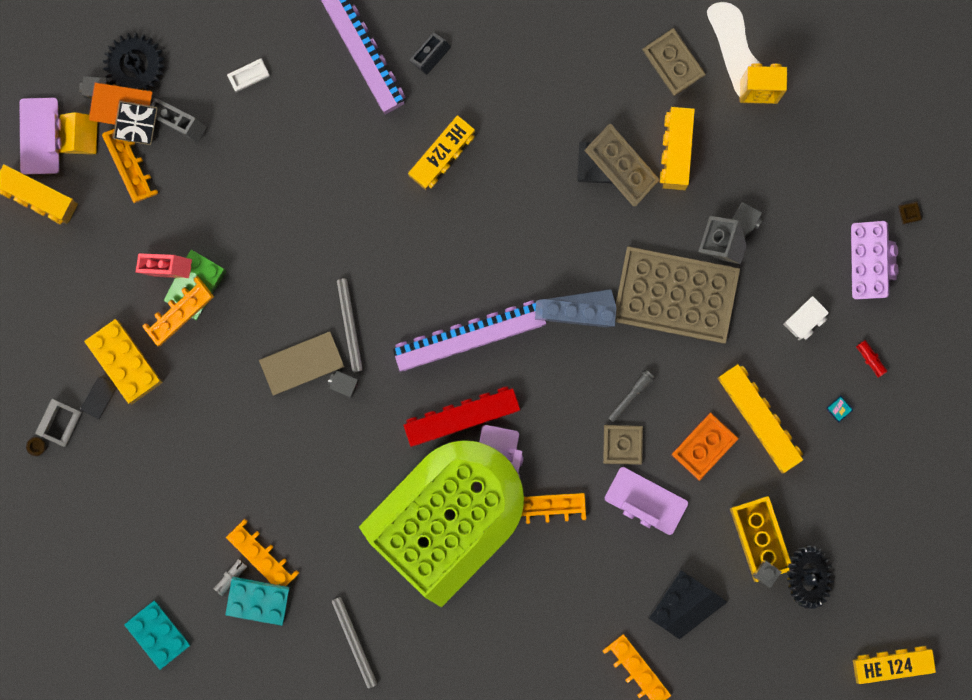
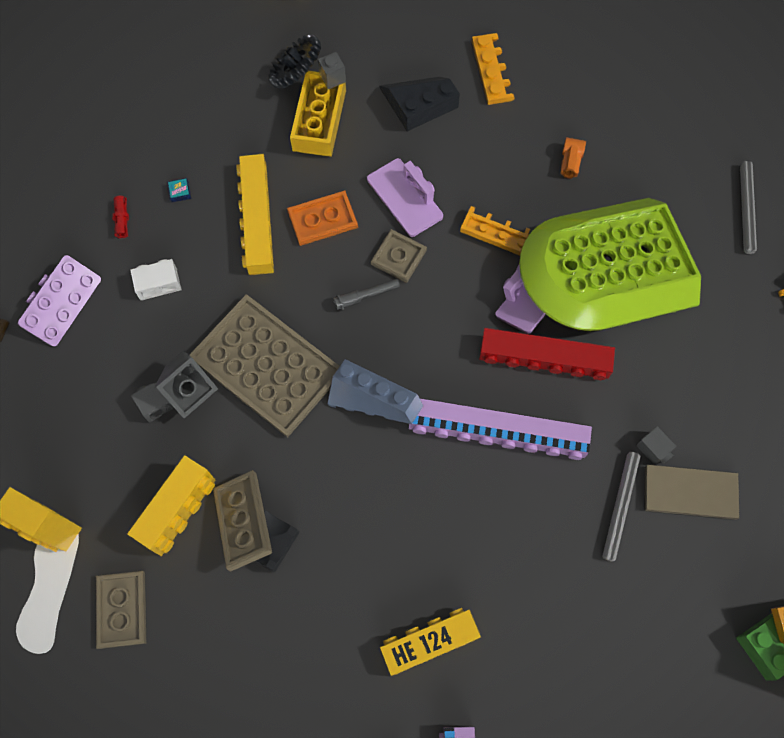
camera: 150 degrees left, 15 degrees down
(524, 616) = (573, 153): none -> orange piece

